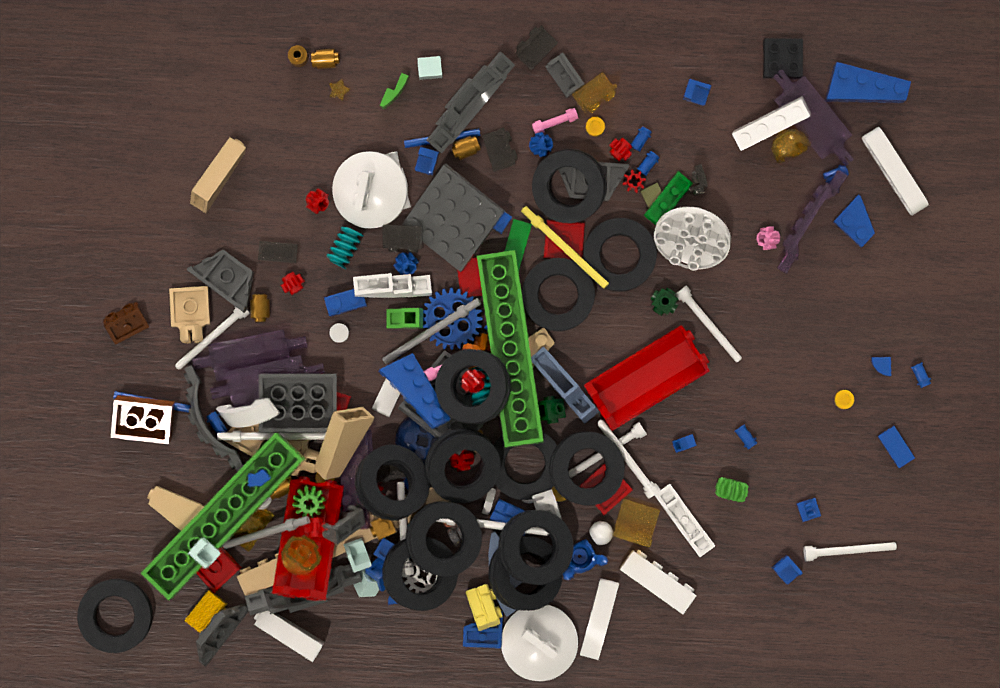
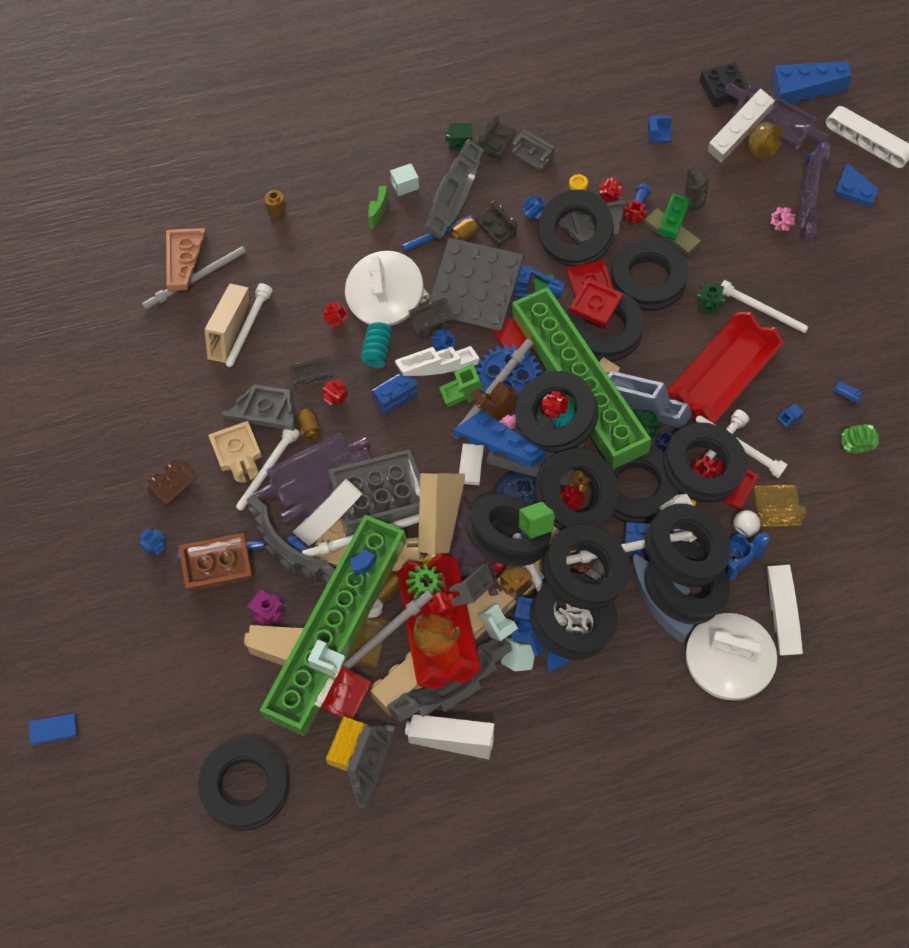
camera: 15 degrees left, 25 degrees down
(95, 377) = (152, 541): none -> blue gear
(165, 122) = (161, 296): none -> light grey bar
(167, 470) = (266, 609): none -> magenta brick
(196, 81) = (182, 255): none -> nougat wing
(258, 153) = (263, 293): none -> white piece
(325, 58) = (302, 201): pearl gold brick -> none
(338, 90) = (323, 224): clear yellow piece -> none
(339, 333) = (398, 425): white tile -> none
(416, 487) = (536, 520): none -> bright green brick
(426, 161) = (430, 252): blue panel -> none
(430, 349) = (499, 402): none -> reddish brown brick
(483, 607) = (656, 636): light yellow brick -> none
(486, 638) = (667, 666): blue wing -> none
(489, 501) = (616, 530): white tile -> none
(499, 34) = (458, 135): none -> dark green brick
(526, 242) = (555, 286): none -> blue plant
(539, 223) = (559, 270): light yellow bar -> none
(555, 275) = (596, 303): none -> red tile
(562, 425) = (664, 436): none -> clear blue plate
(570, 115) = (551, 181): bright pink bar -> none
(586, 473) = (711, 465): none -> red gear
(594, 93) = (568, 155): clear yellow bracket -> none
(641, 138) = (626, 176): blue pin -> none
(657, 581) = (828, 553): white brick -> none
(684, 520) = (825, 488): white slope -> none
(692, 238) = (713, 231): white bracket -> none

